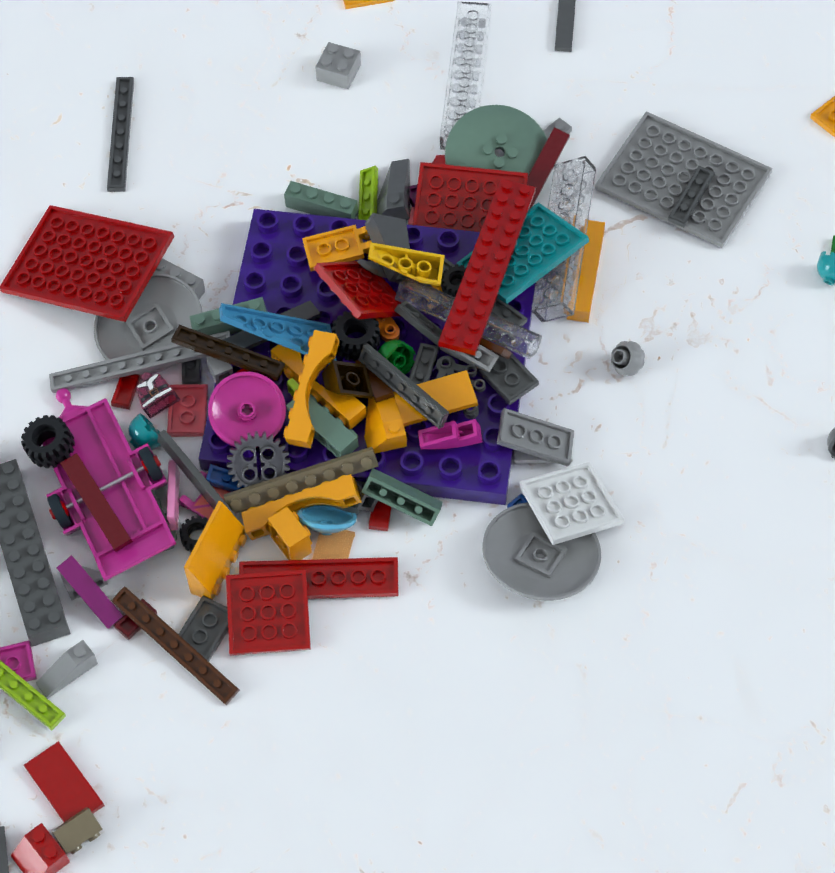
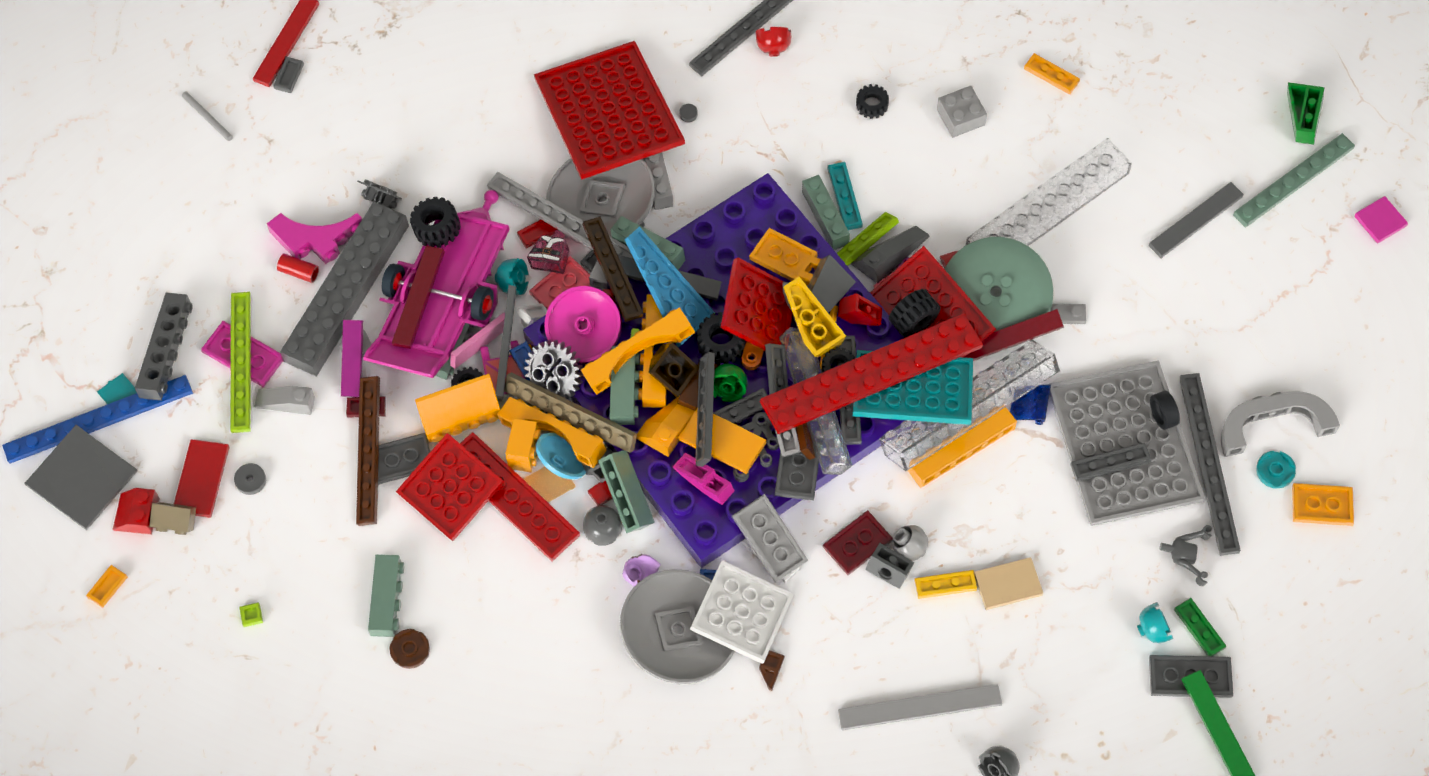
camera: 45 degrees right, 5 degrees up
(101, 741) = (250, 487): none -> dark grey piece
(145, 219) = (688, 112): none -> dark grey tile
(154, 124) = (773, 40): none -> red cylinder
(191, 445) = (531, 313): none -> white tile
(218, 842) = (251, 614): none -> lime tile
(268, 100) = (872, 92): none -> black tyre
(306, 176) = (845, 195): none -> teal tile
(306, 730) = (385, 595): none -> sand green brick
(365, 750) = (409, 648): none -> reddish brown tile
(405, 539) = (602, 525): none -> dark grey cylinder
(428, 237) = (859, 310): none -> red slope
(466, 208) = (914, 313): none -> black tyre
(469, 541) = (639, 568): none -> lavender hair
(590, 392) = (857, 542): none -> dark red tile
(602, 205) = (1032, 405): none -> clear blue hinge
(631, 384) = (889, 565): none -> dark grey brick
(631, 525) = (771, 668): none -> reddish brown tile
(676, 366) = (945, 584): none -> yellow tile
(686, 140) = (1164, 410): none -> black tyre
(714, 329) = (1008, 583): none -> tan tile
(749, 146) = (1209, 464): none -> dark grey plate
(751, 457) = (920, 707): none -> light grey tile
(766, 60) = (1303, 403): none -> light grey arch
(790, 116) = (1276, 469): none -> teal tile
(800, 210) = (1186, 553): none -> dark grey piece

